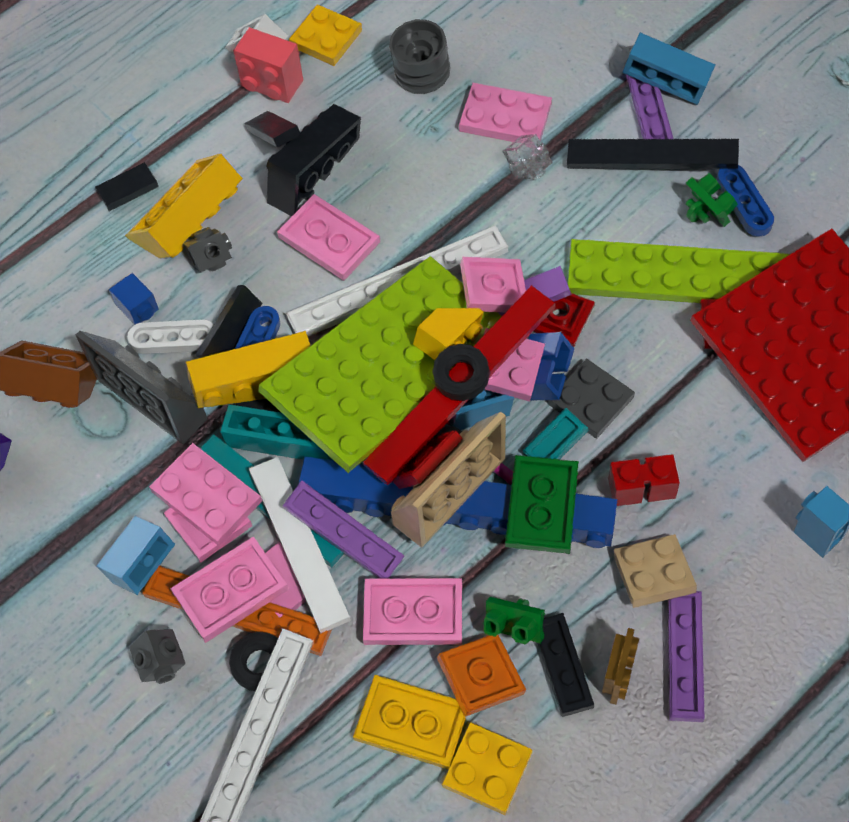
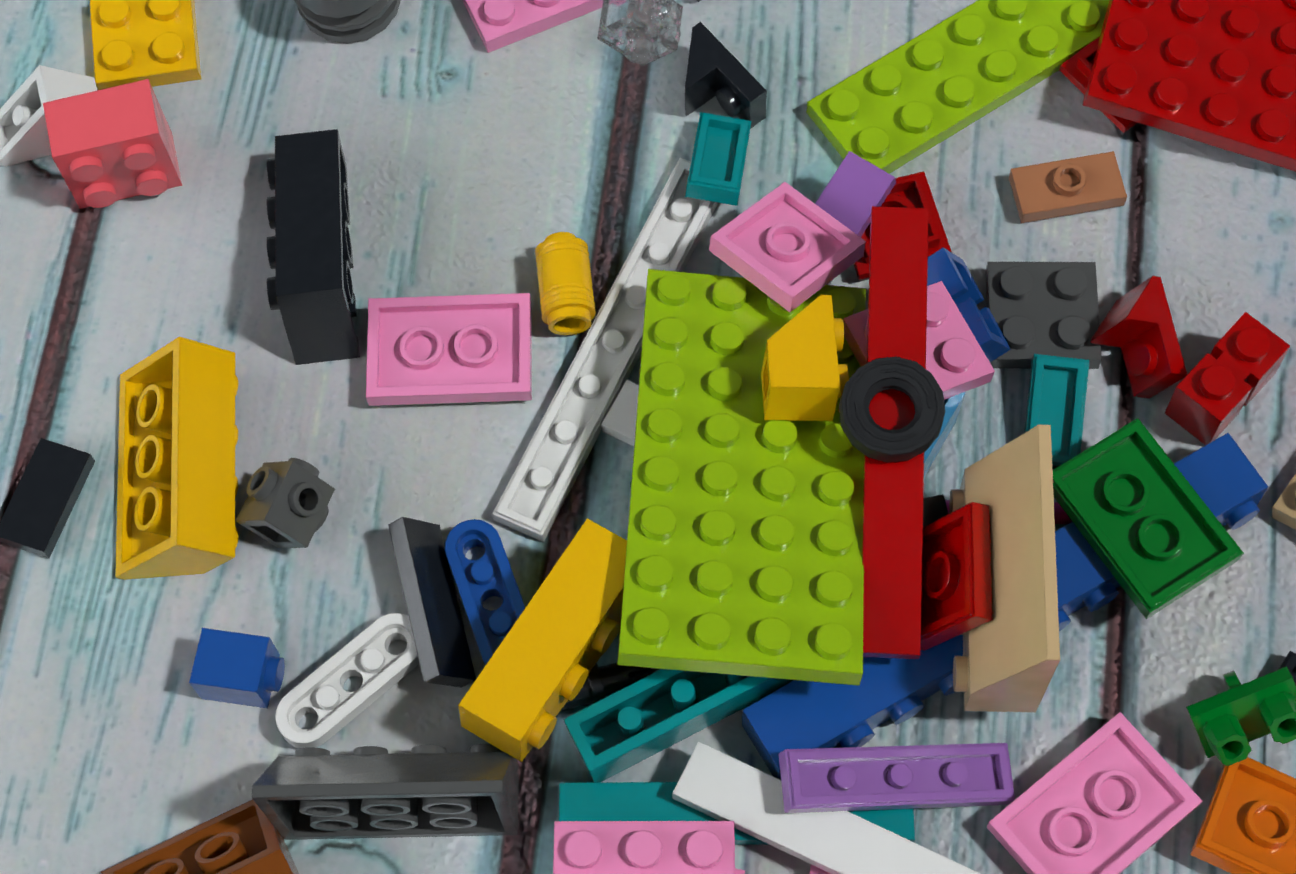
camera: 40 degrees left, 5 degrees up
(273, 128) = (215, 240): black tile -> none
(398, 242) = (565, 283): none -> yellow head
(509, 235) = (718, 159): none -> teal tile
(538, 199) = (718, 73): none -> black slope
(625, 435) = (1147, 336): none -> red slope
(655, 353) = (1067, 187): none -> nougat plate

